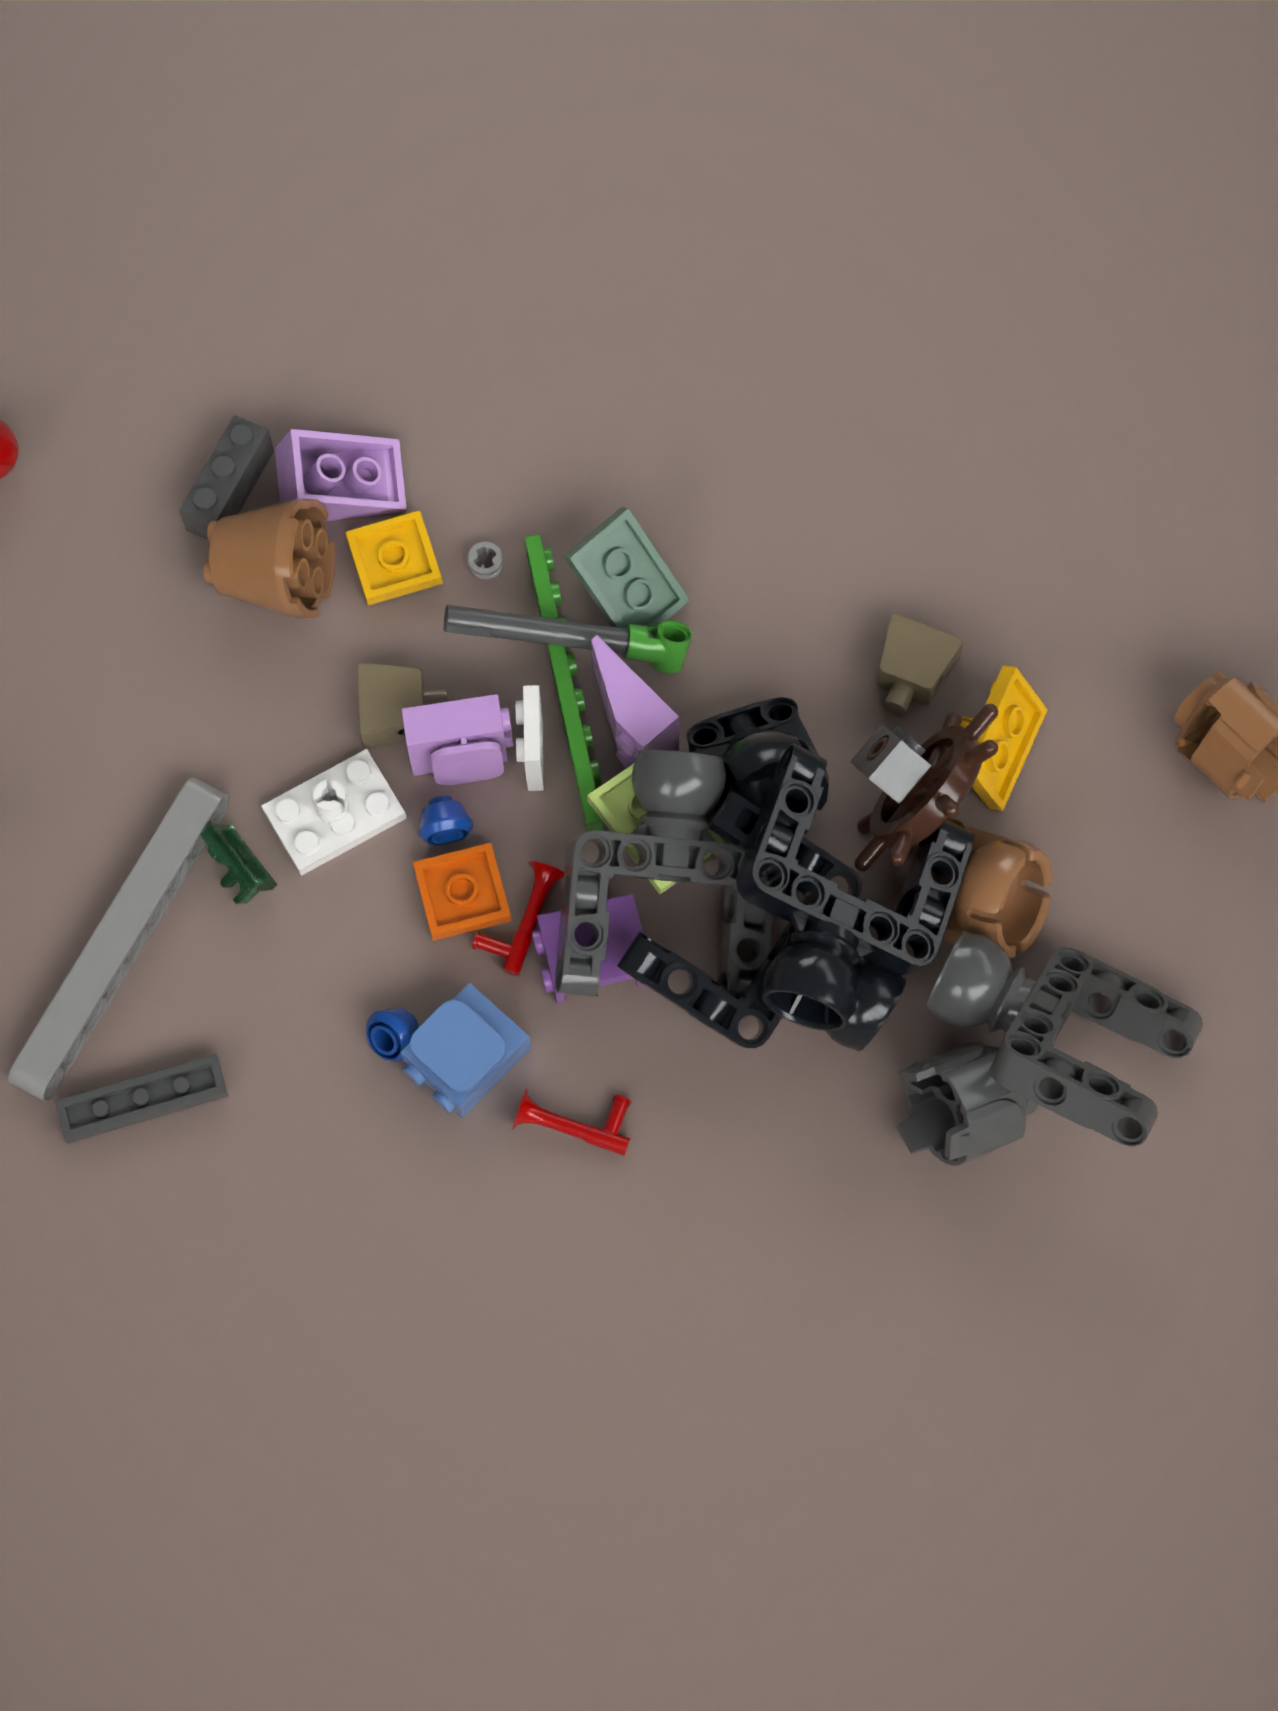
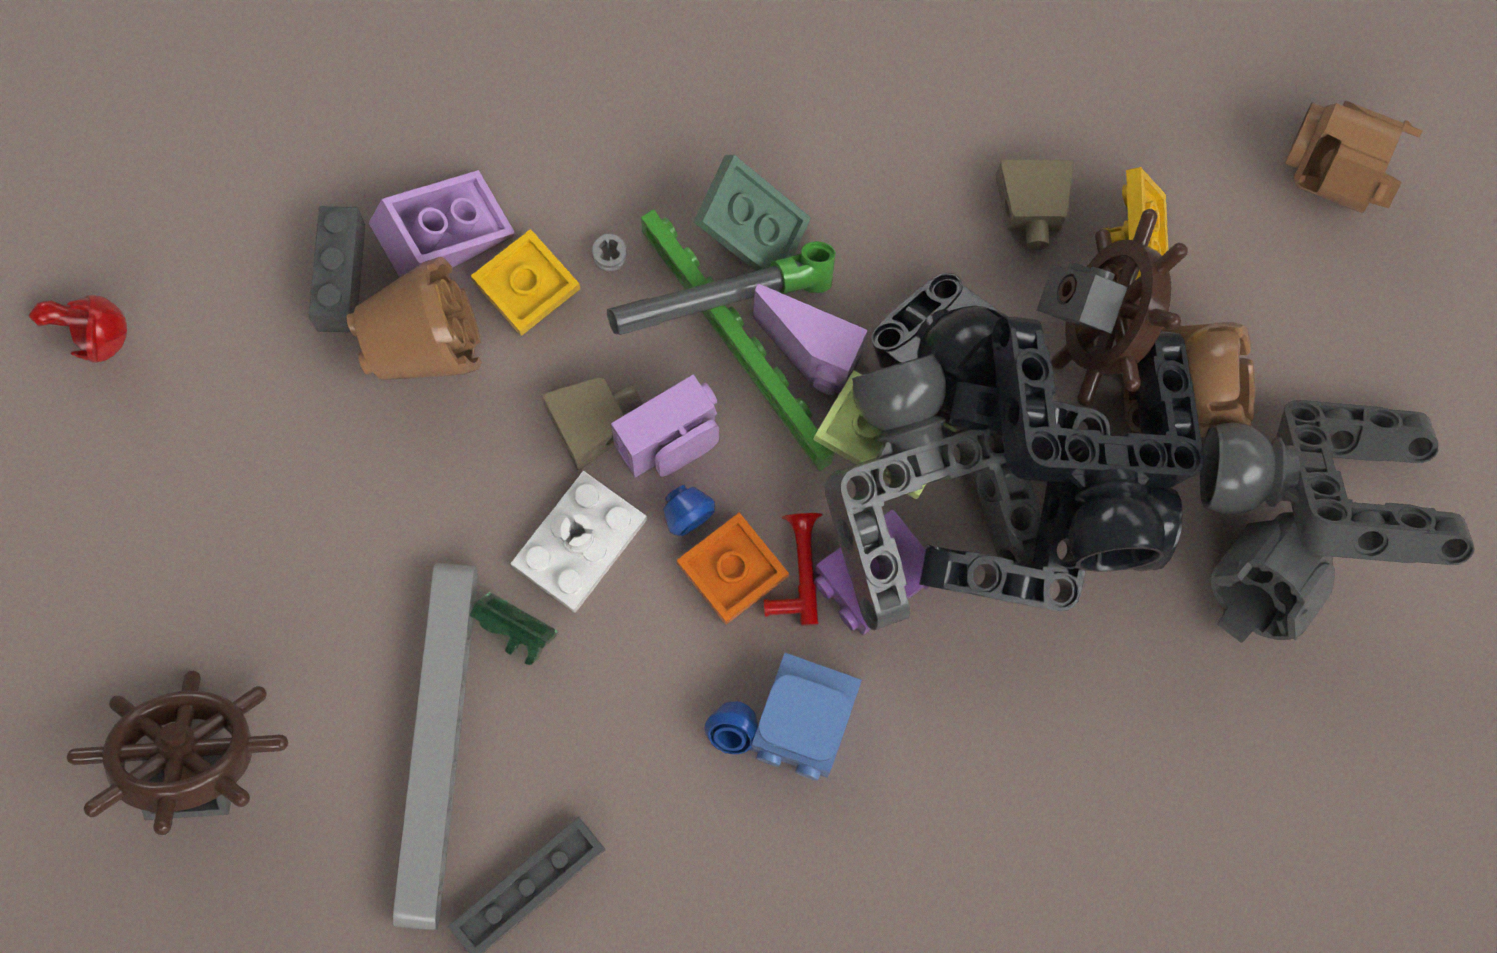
camera: 30 degrees left, 5 degrees up
(531, 746) = (735, 400): white plate -> none
(605, 1138) = (967, 742): red piece -> none

